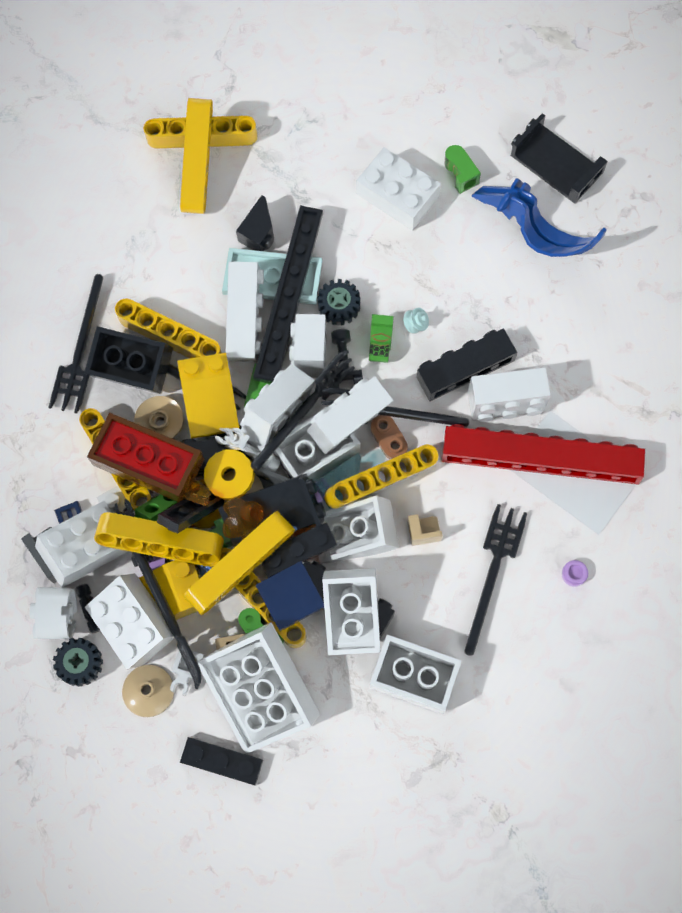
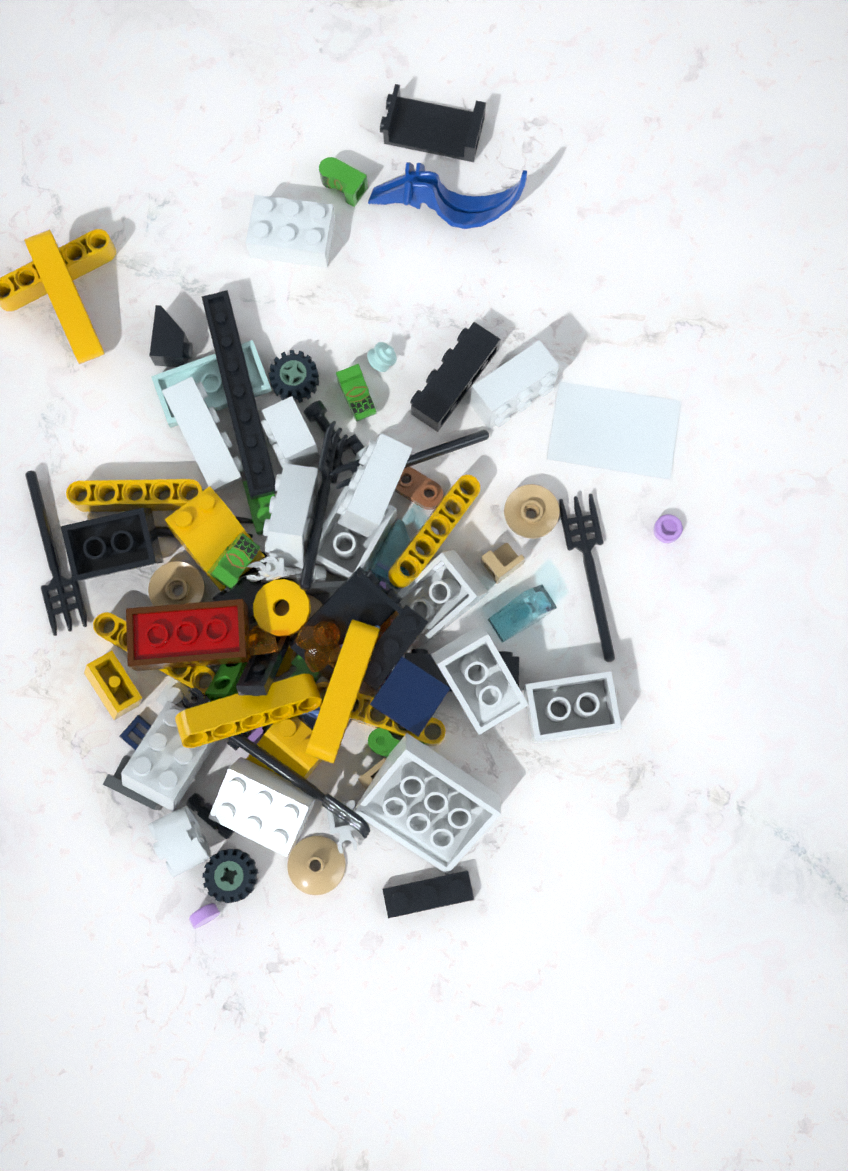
camera: 30 degrees left, 5 degrees up
(41, 681) = (204, 915): none -> lavender tile
(70, 467) = (112, 685): none -> yellow brick
(212, 419) = (234, 560): none -> bright green leg
(418, 578) = (522, 612): none -> clear light blue slope
(475, 491) = (531, 498): none -> tan dish
(543, 454) = (577, 428): red brick -> none

